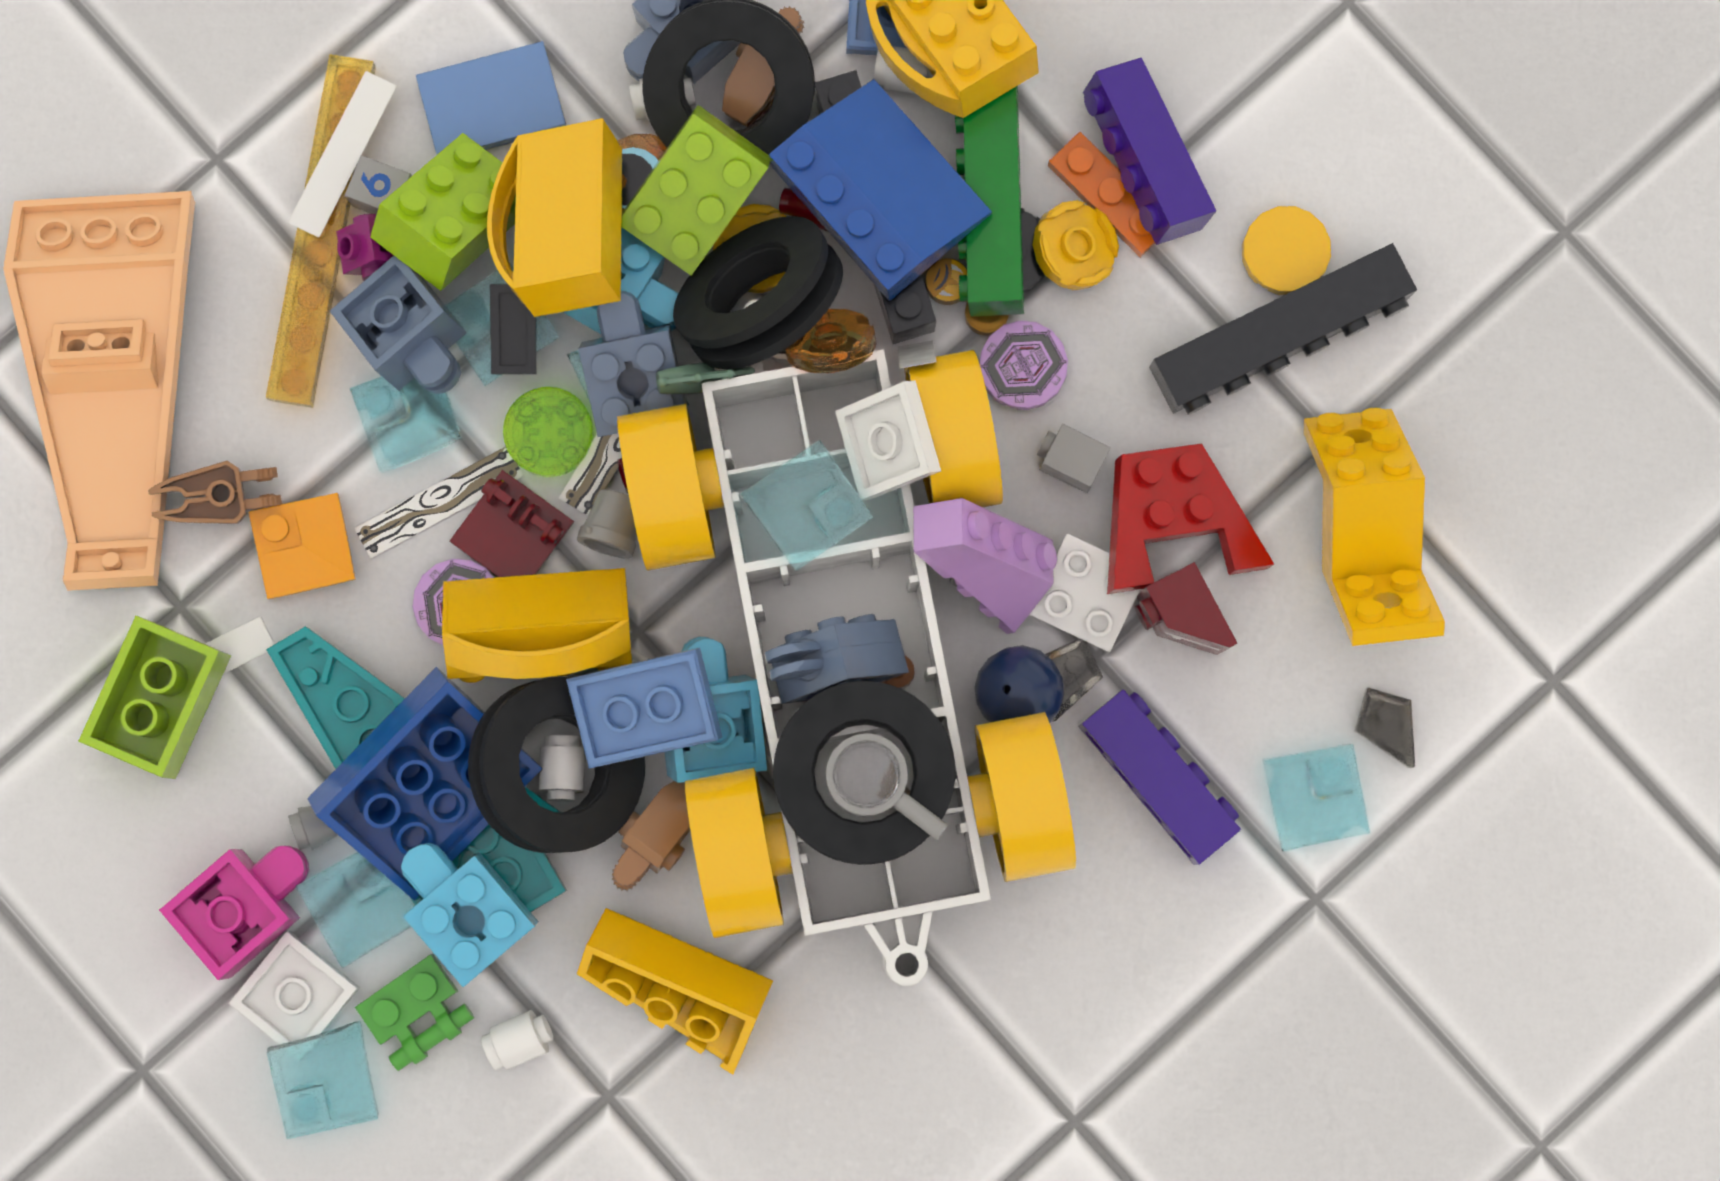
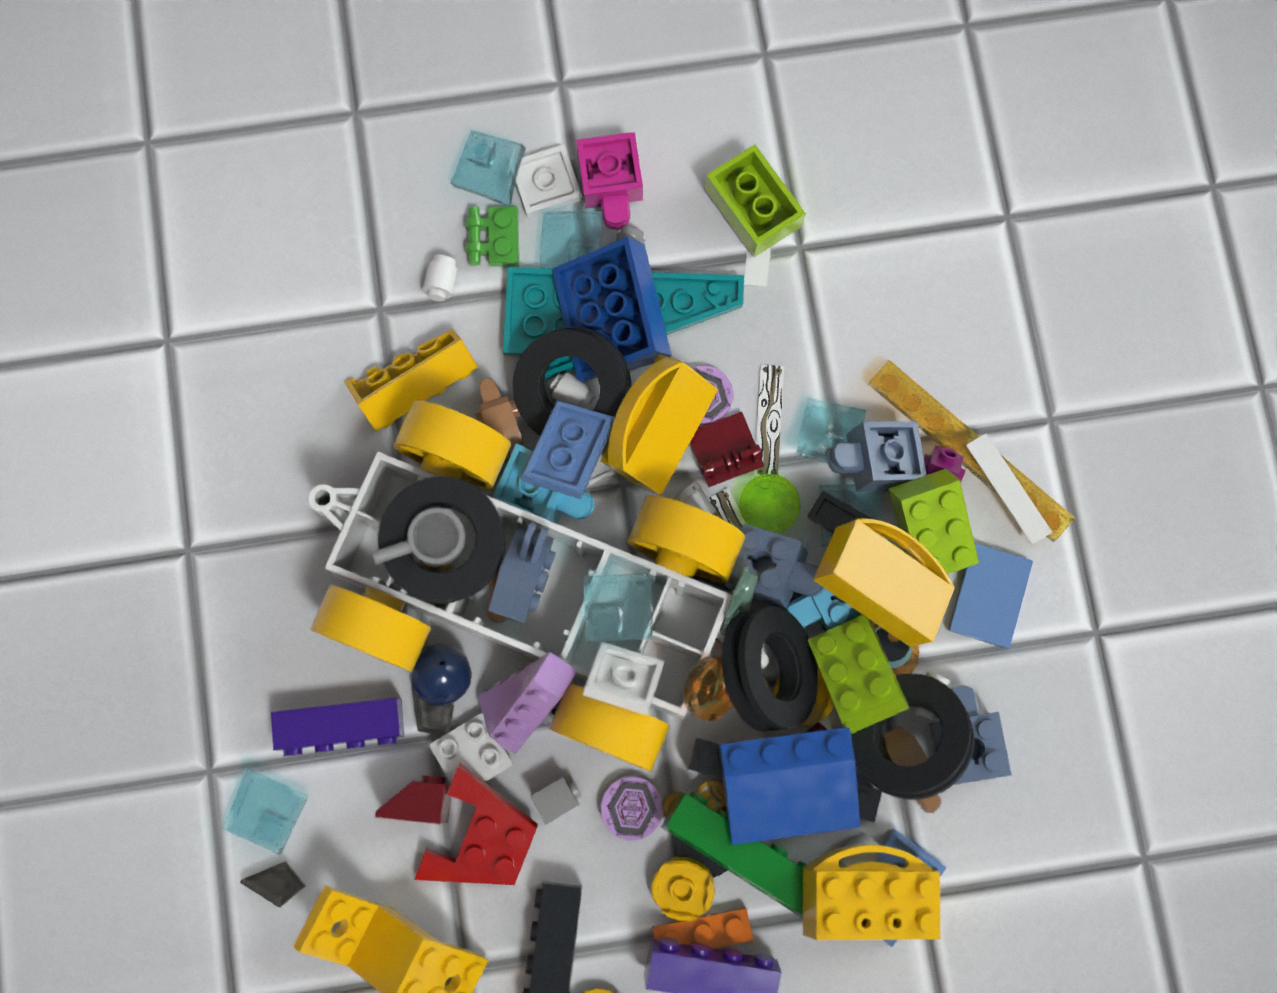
camera: 125 degrees right, 5 degrees down
(112, 284) = (1012, 313): light nougat wing -> none
(223, 494) = (849, 298): medium nougat hinge -> none
(302, 545) = (791, 331): light orange plate -> none
(373, 183) = (979, 495): light grey brick -> none
(465, 912) = (532, 294): medium azure brick -> none
(916, 354) = (672, 739): white sticker -> none

